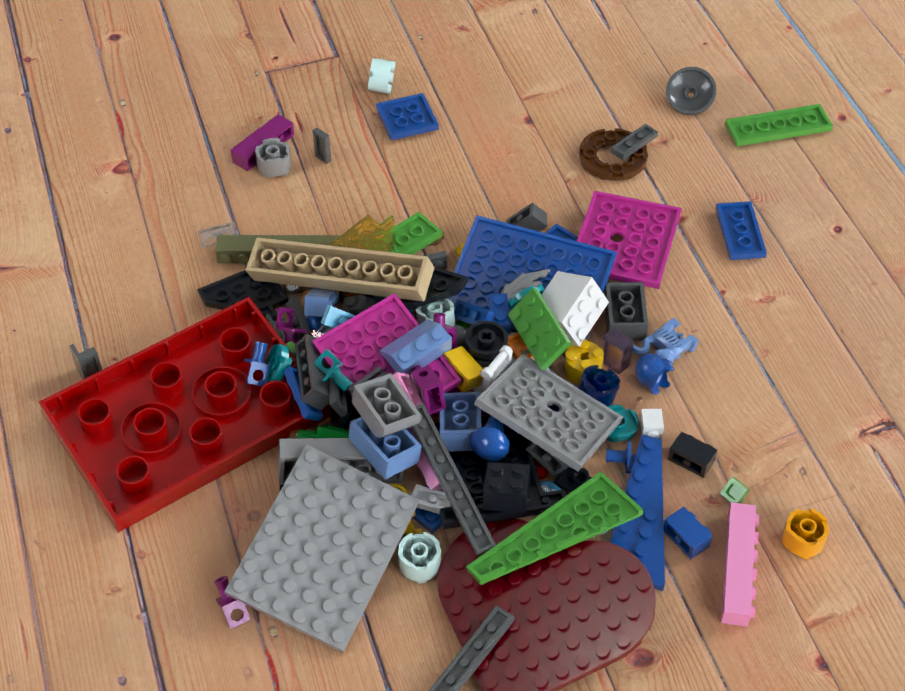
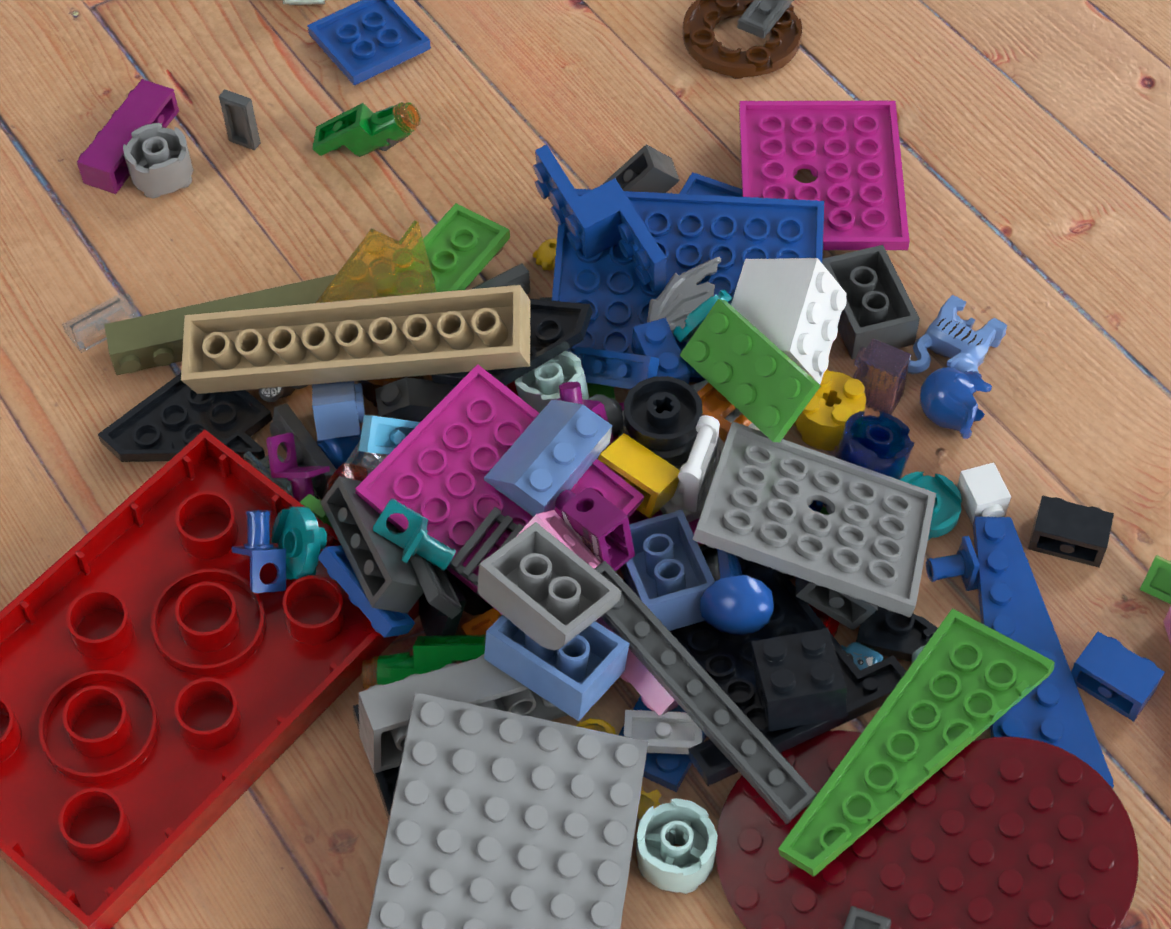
camera: 15 degrees left, 5 degrees up
(387, 165) = (367, 131): none -> green plate
(488, 235) = (600, 219): none -> blue bracket
(740, 230) = (999, 118): blue plate -> none

